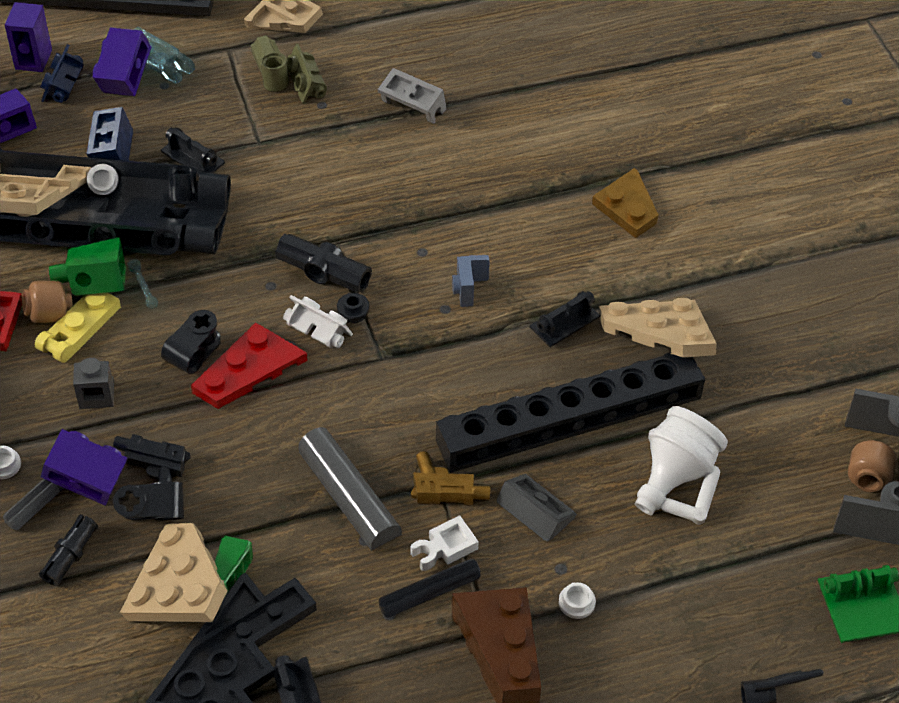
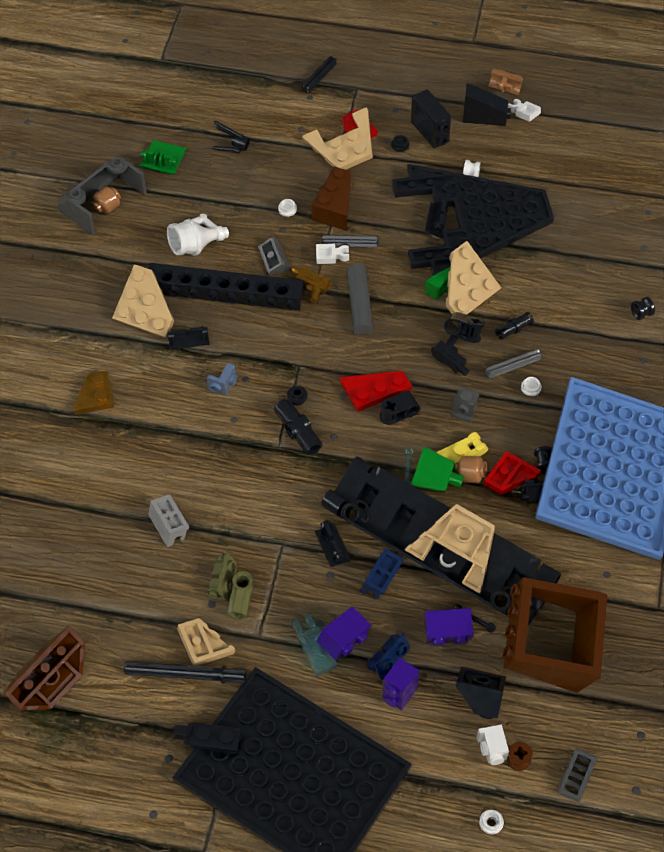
camera: 150 degrees left, 5 degrees up
(83, 466) = (491, 352): dark purple brick -> none
(102, 179) = (401, 538): white plate -> none
(328, 326) = (318, 389): white hinge -> none

